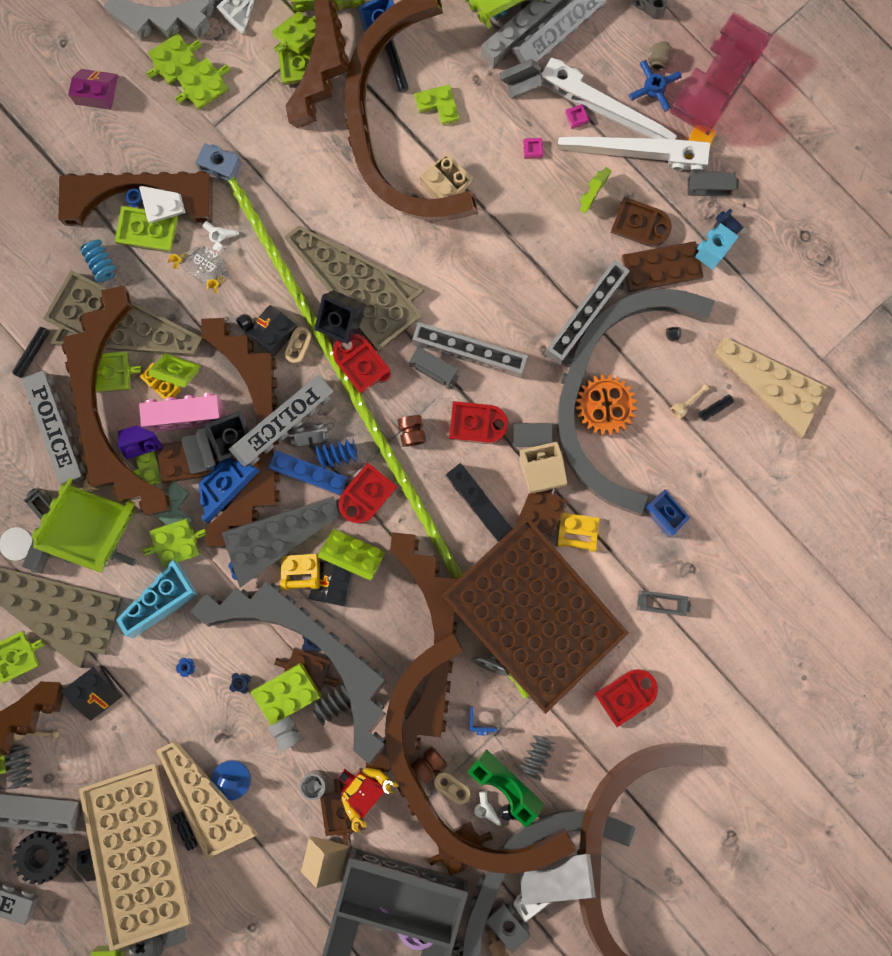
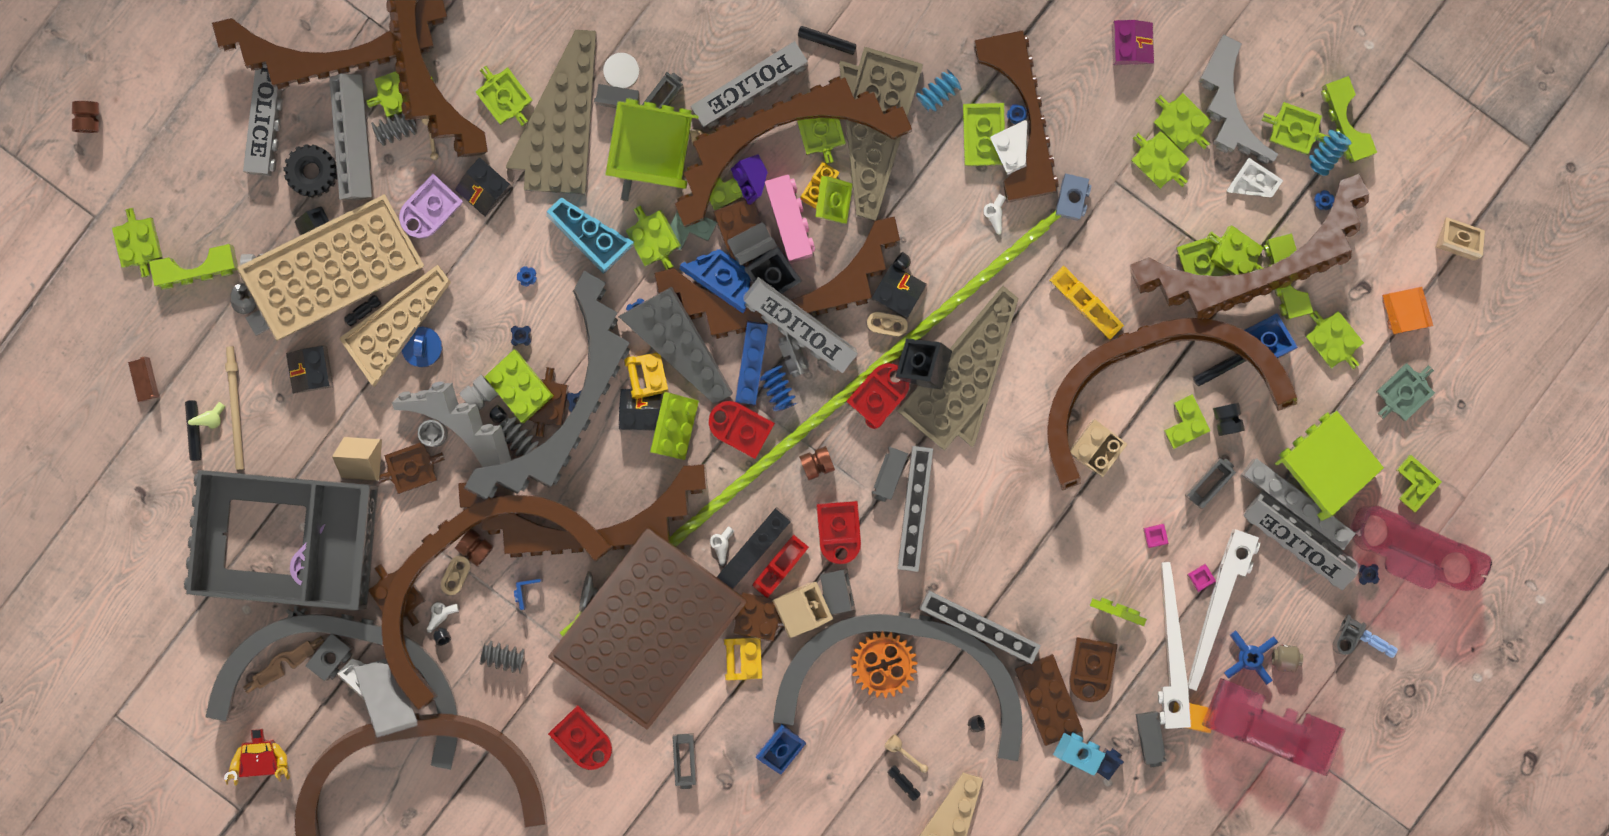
camera: 80 degrees right, 5 degrees up
(100, 746) = (430, 207): none -> lavender plate
(203, 265) = (955, 206): clear torso -> none
(229, 893) = (309, 369): none -> black slope
(306, 751) = (464, 419): none -> light grey arch
(308, 719) = (497, 414): none -> black hinge
(315, 169) = (1086, 302): none -> yellow slope
(362, 792) = (435, 485): torso -> none
(442, 65) = (1228, 419): none -> black wheel
(469, 533) = (721, 544): none -> white animal
(488, 75) = (1226, 468): none -> dark grey window
(499, 482) = (780, 566): none -> red slope
(522, 78) = (1229, 511): dark grey panel -> none
(523, 802) = (479, 611): green arch -> none

